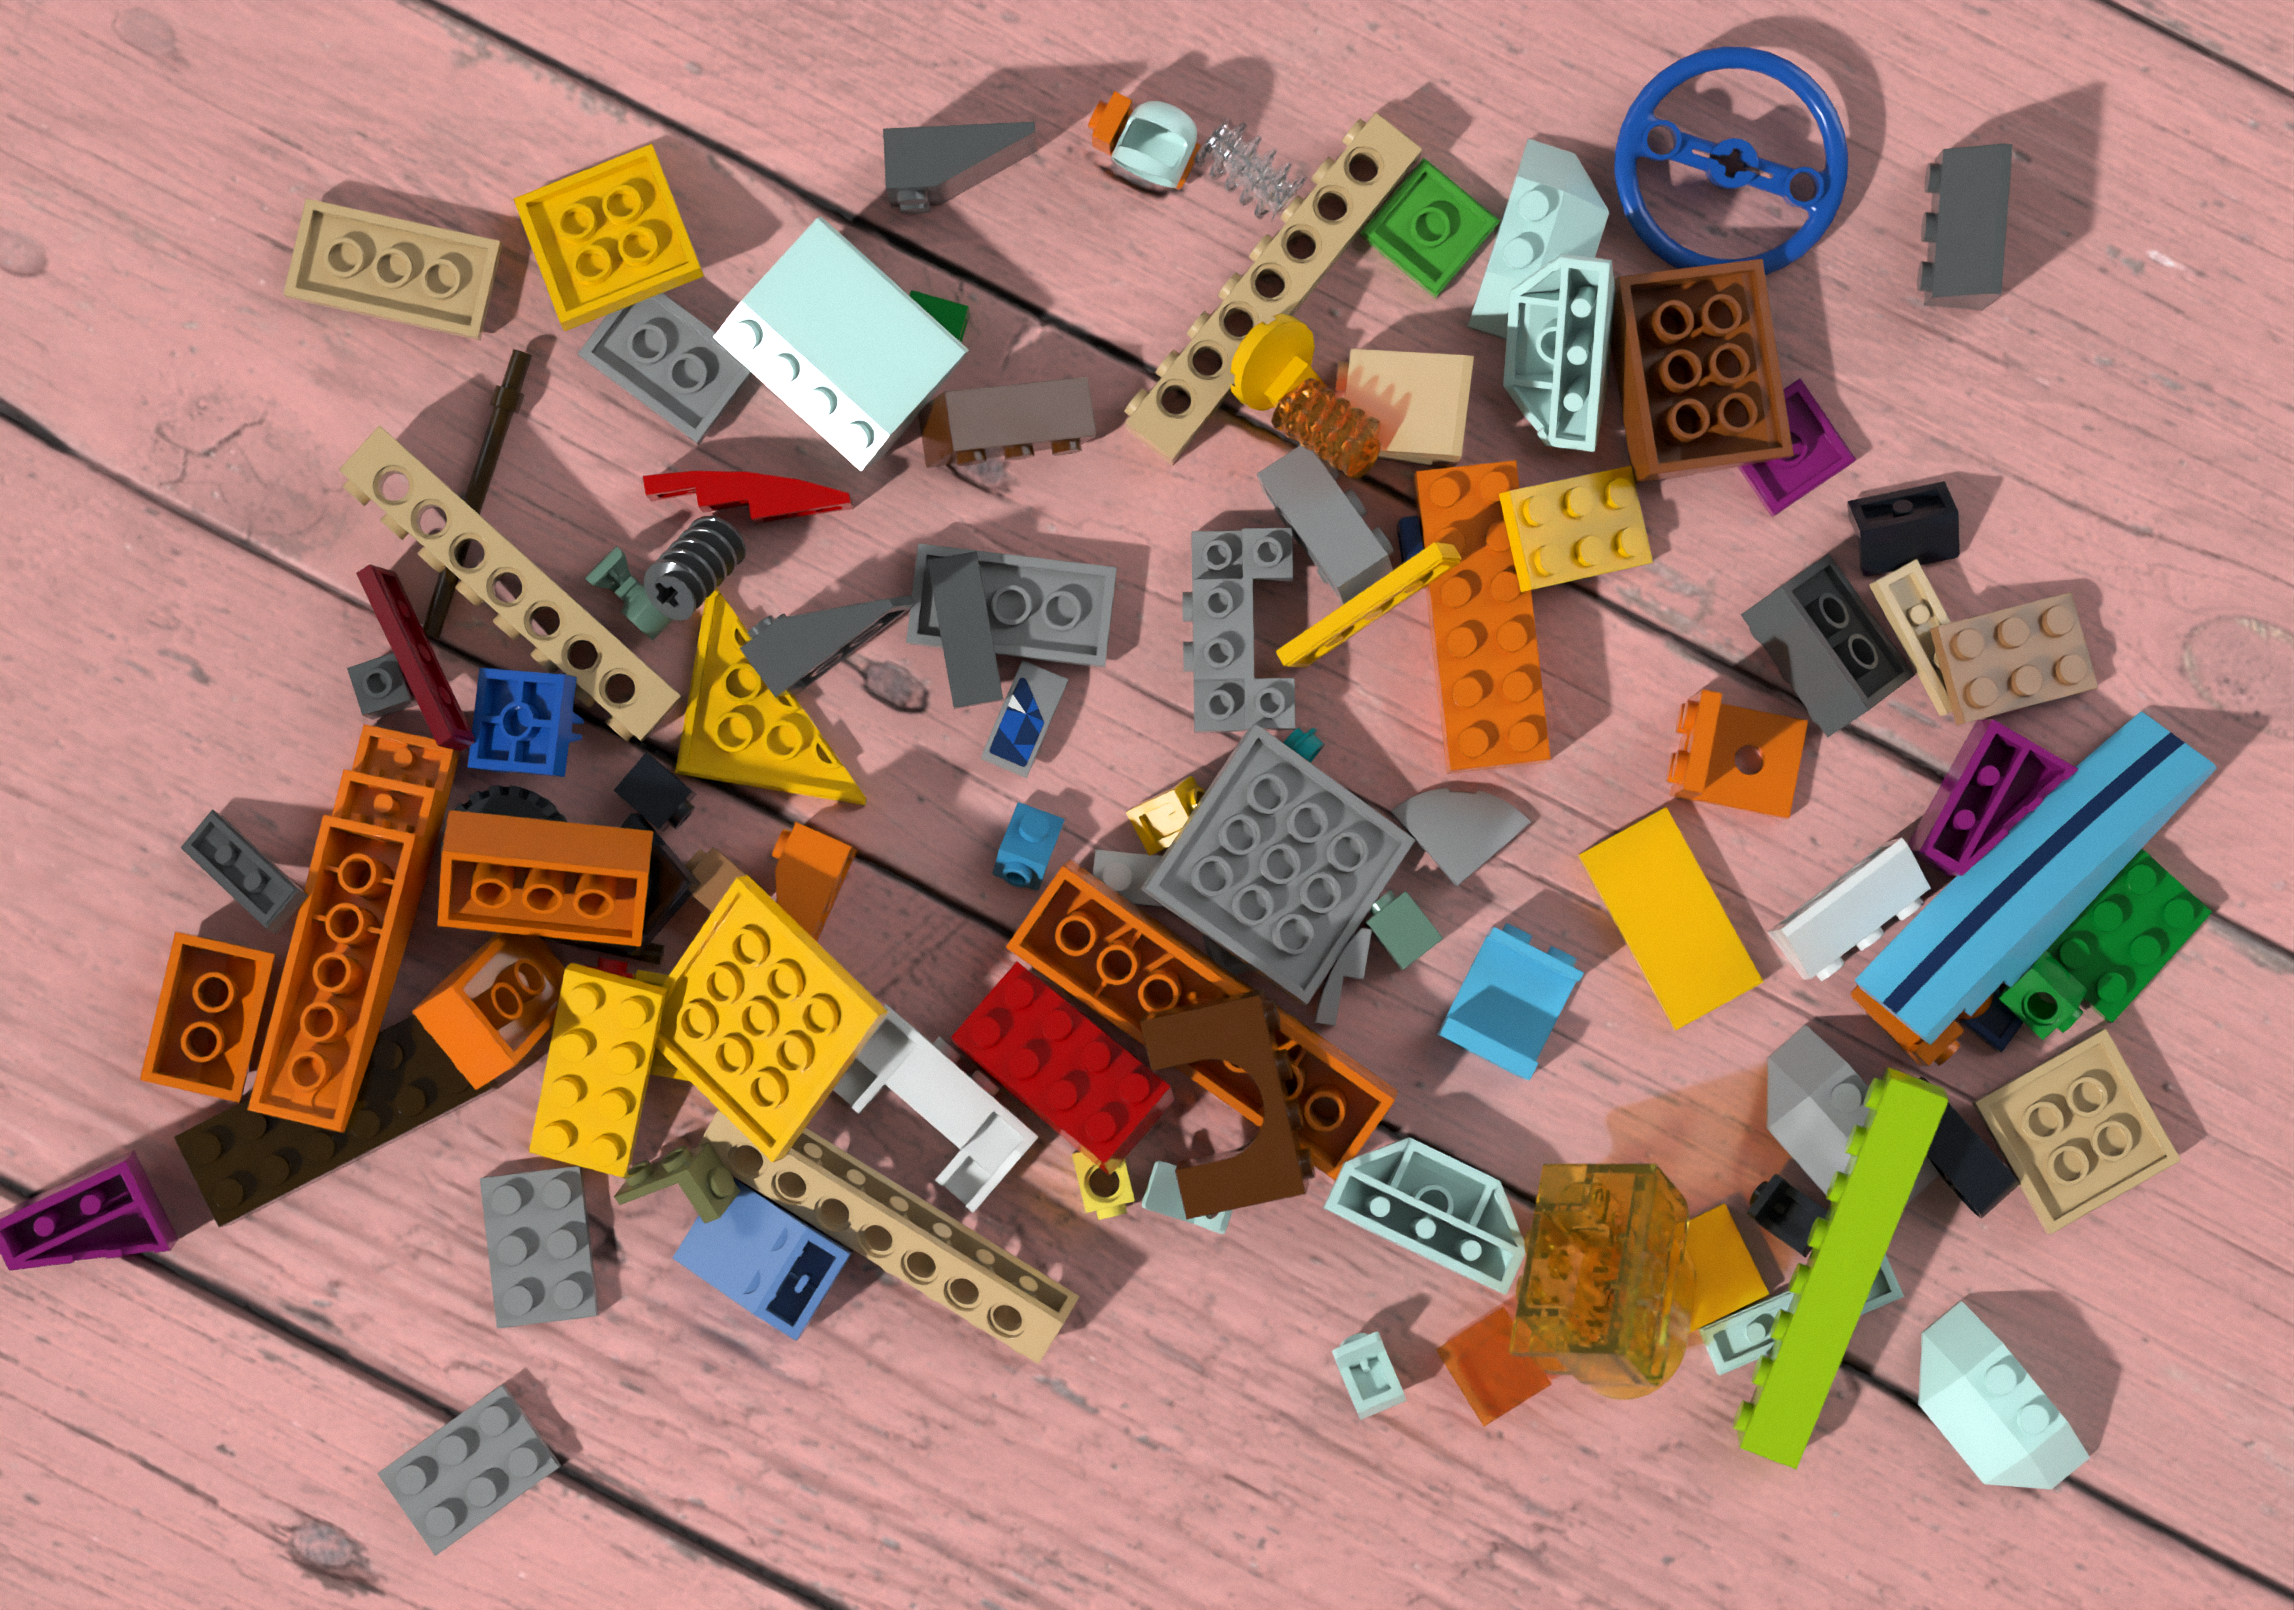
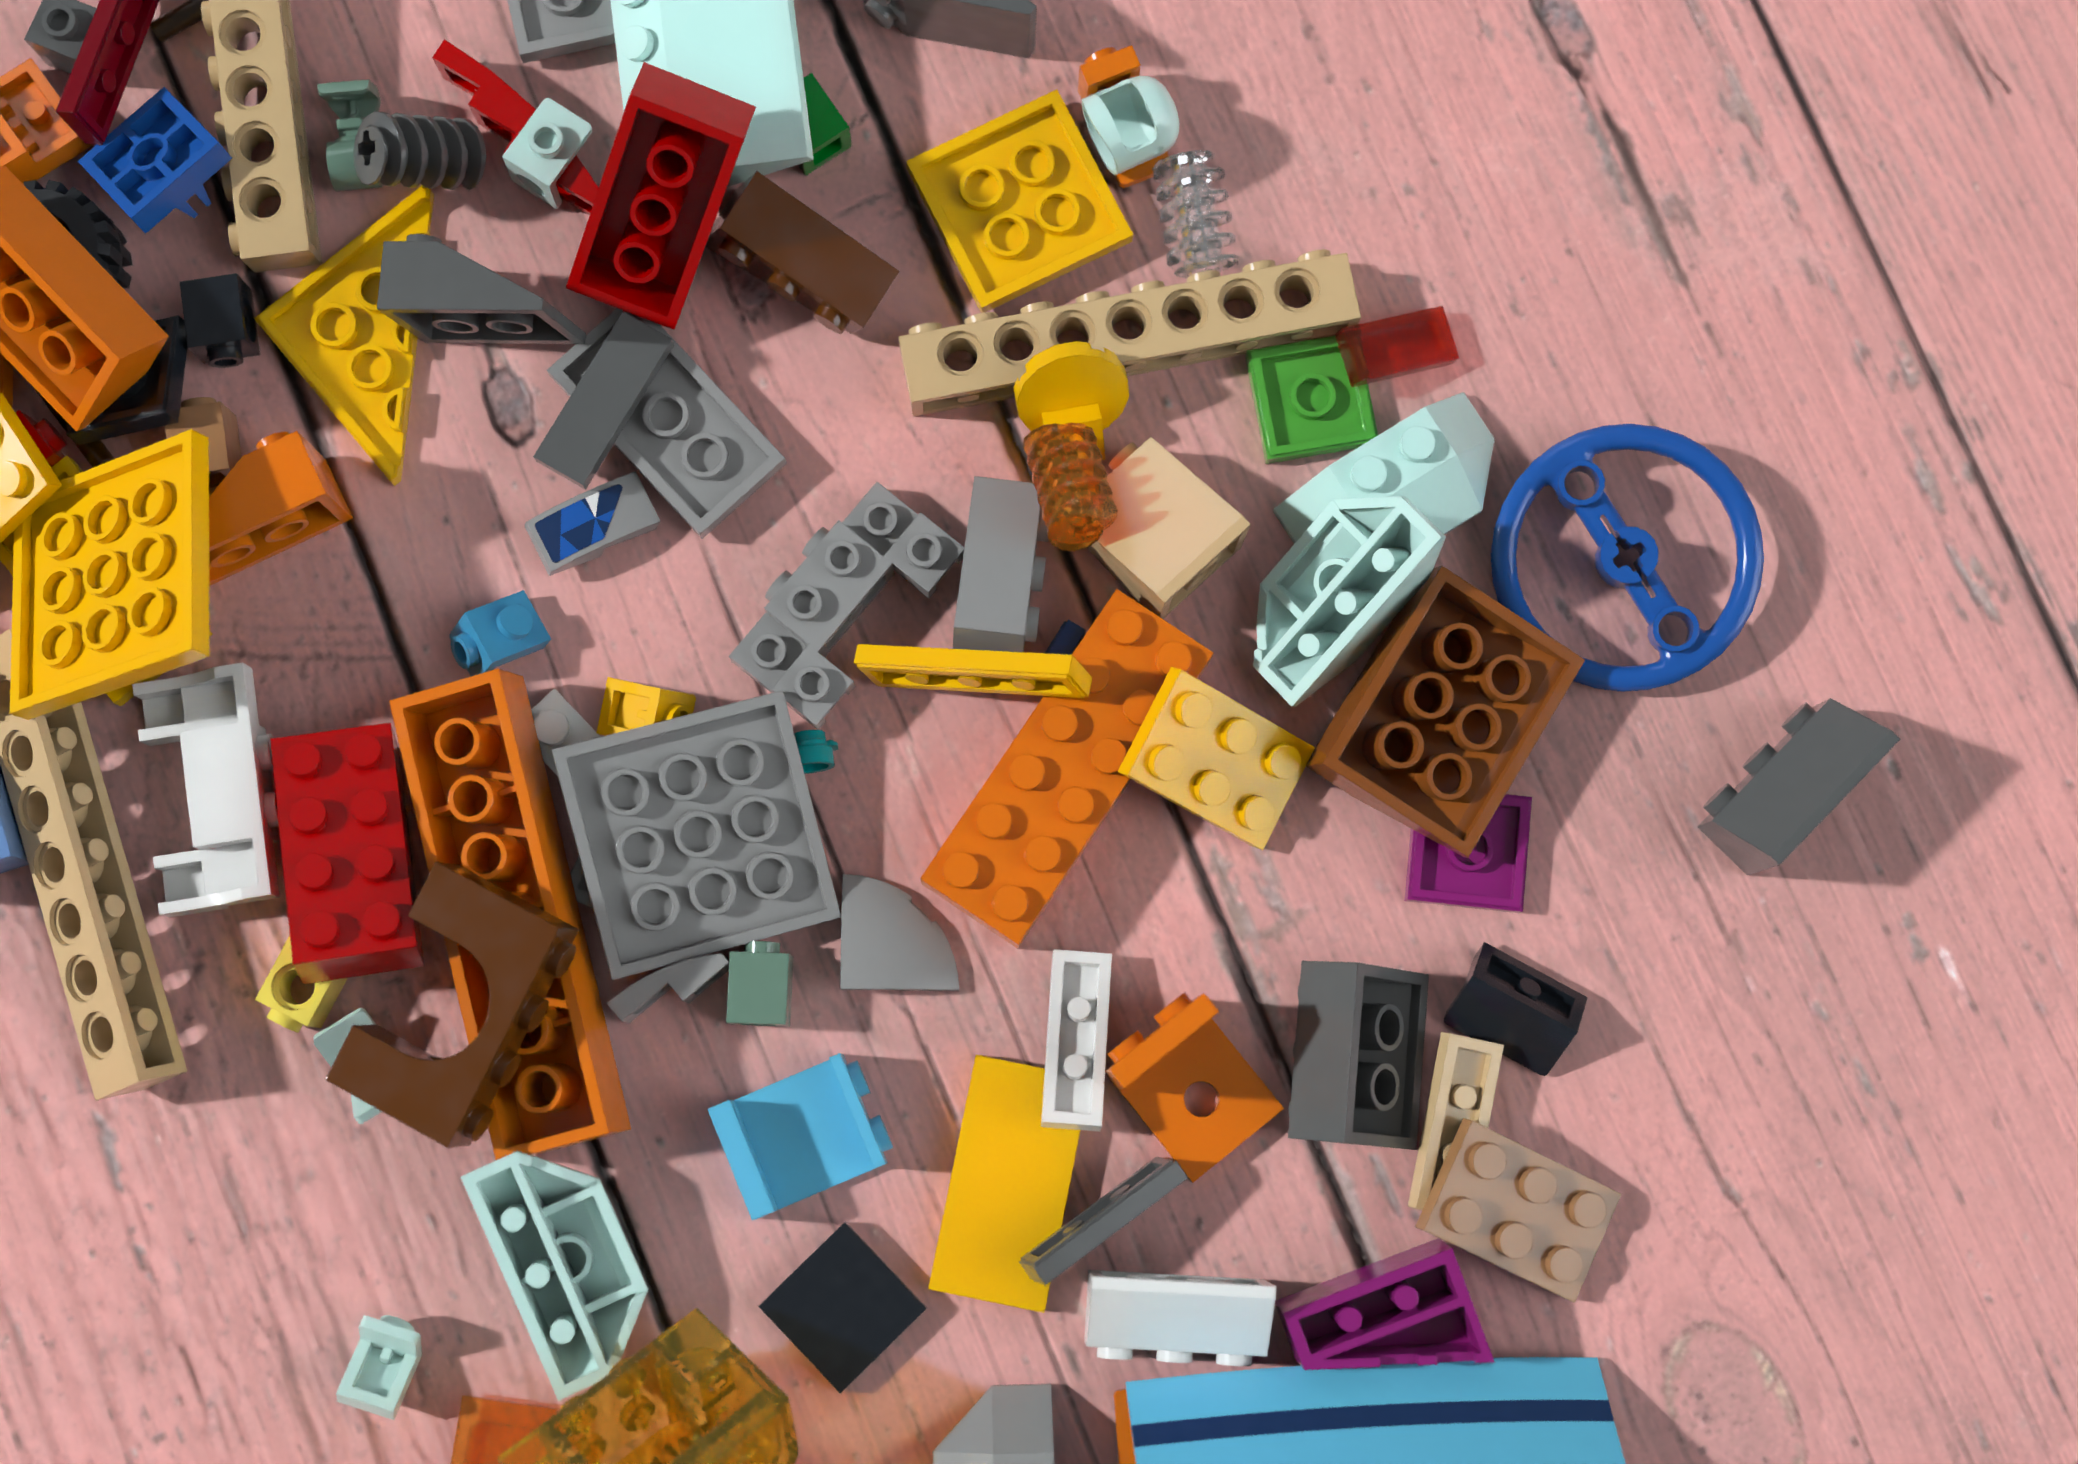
camera: 35 degrees right, 5 degrees down
(778, 492) = (546, 149): none -> light aqua bracket
(897, 463) = (659, 195): none -> red brick
(1120, 258) = (1019, 201): none -> yellow plate
(1458, 145) = (1397, 346): none -> clear red tile
(1630, 1088) = (842, 1307): none -> black tile
(1637, 789) = (1076, 1040): none -> white plate
(1752, 890) = (1102, 1219): none -> dark grey tile

